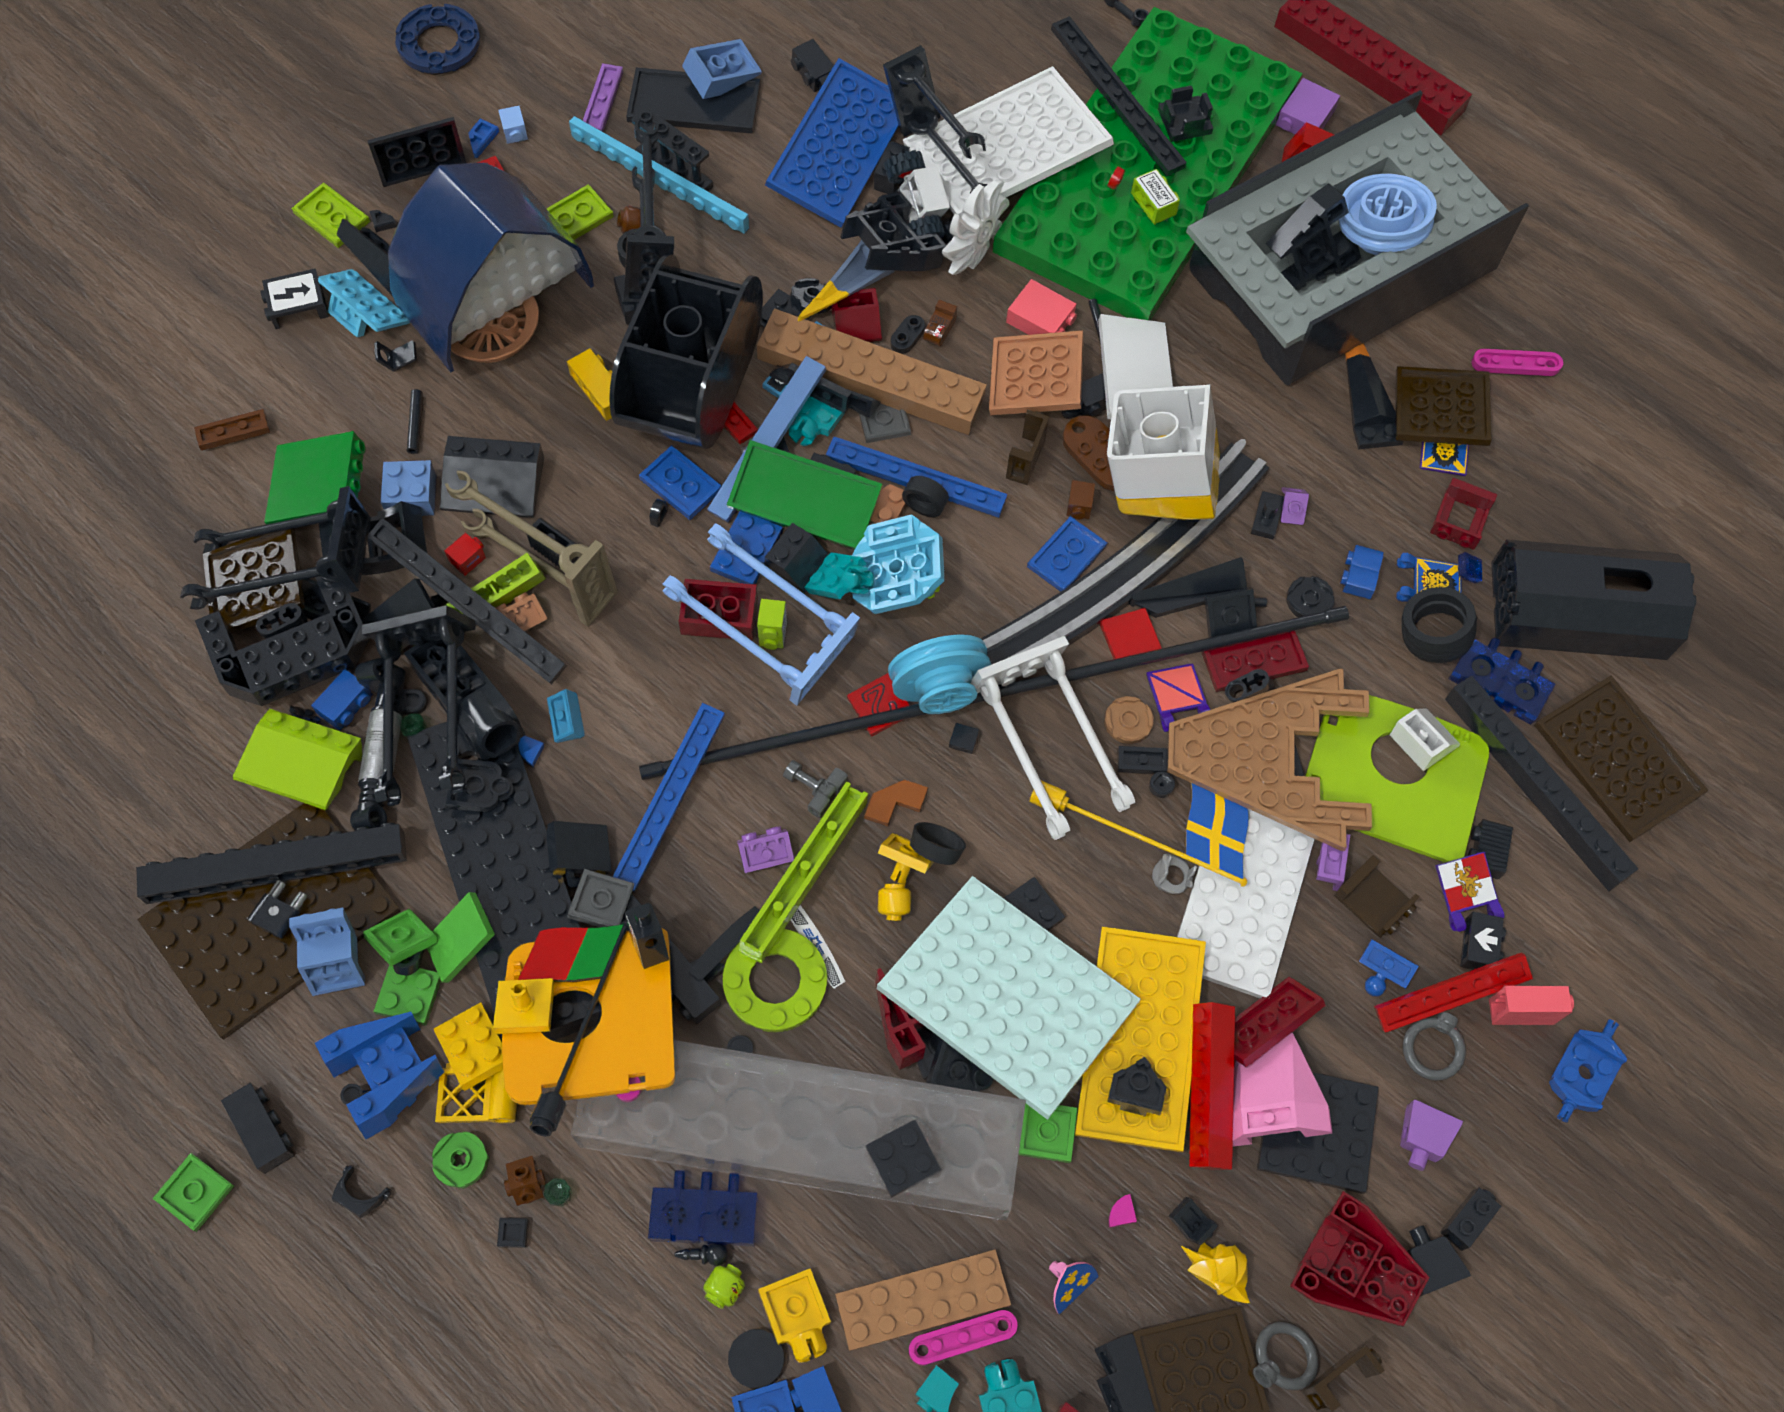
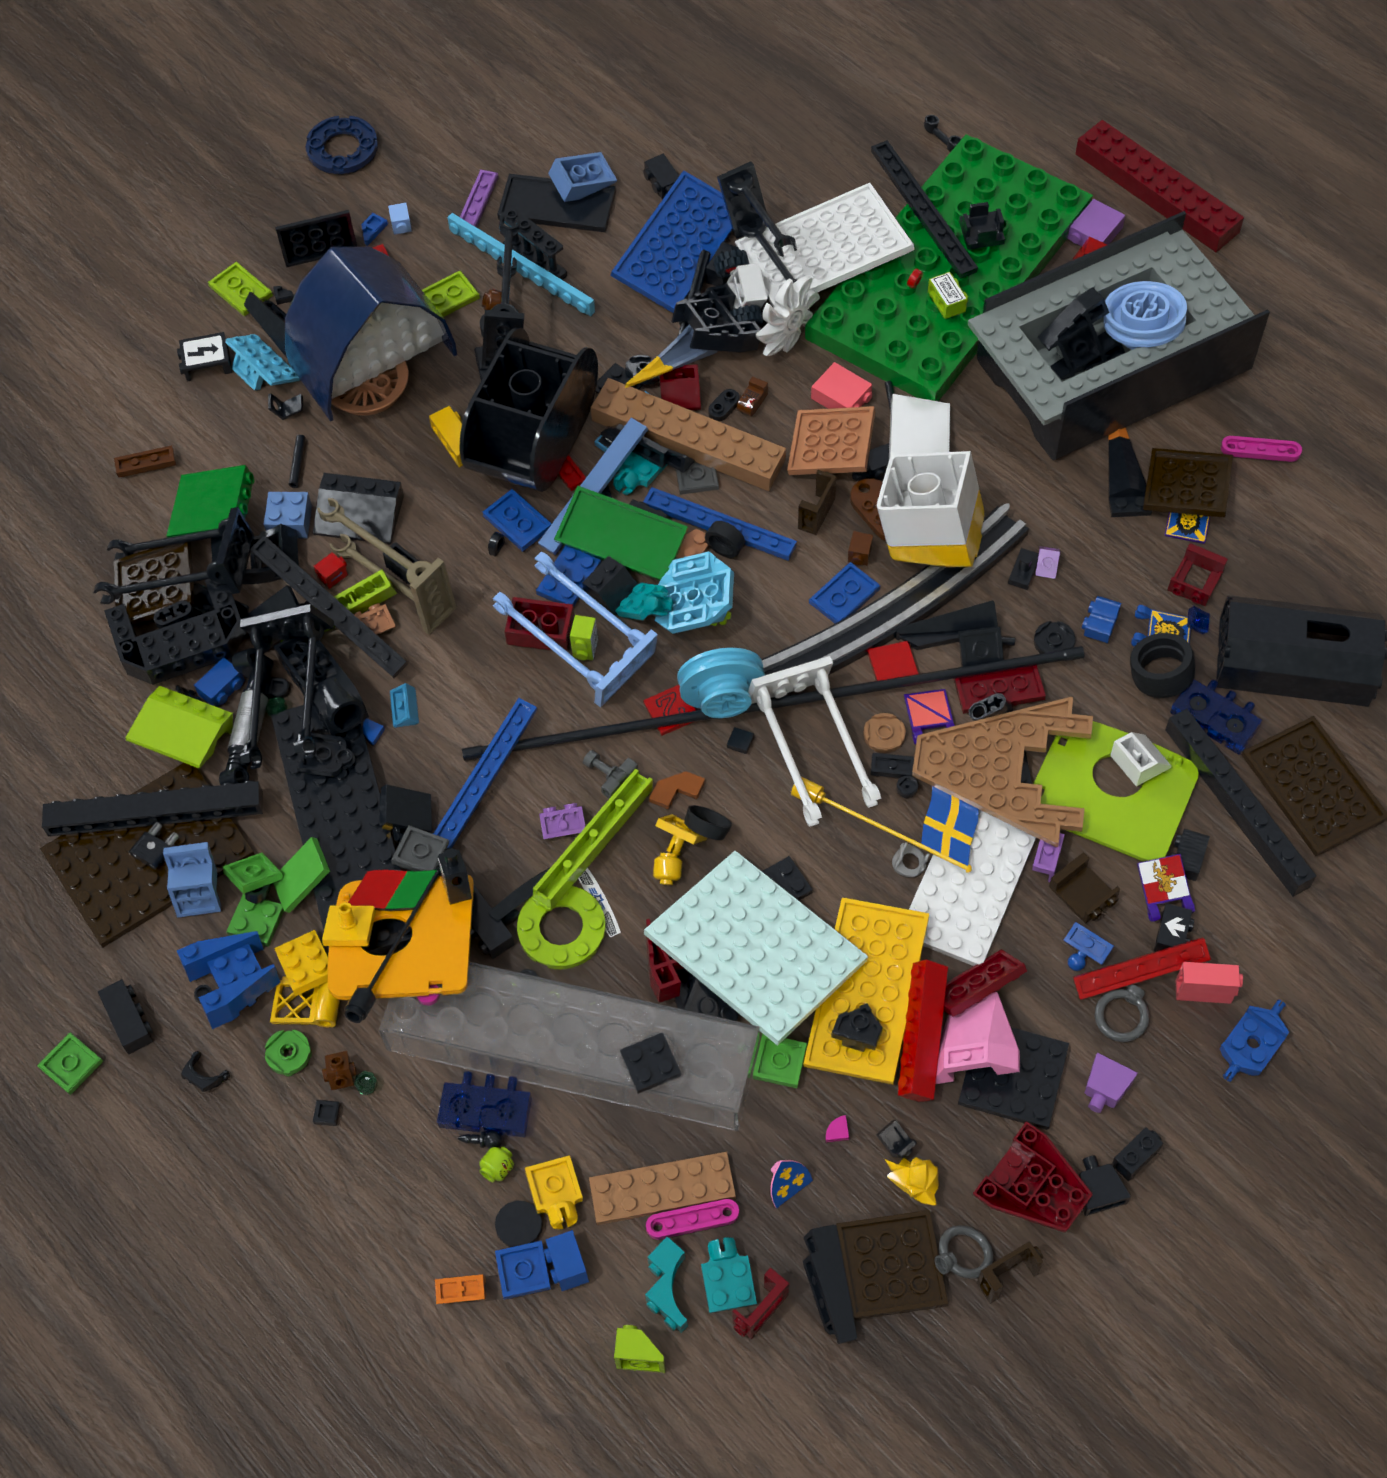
camera: 10 degrees right, 5 degrees down
(864, 191) = (698, 280): none -> black axle

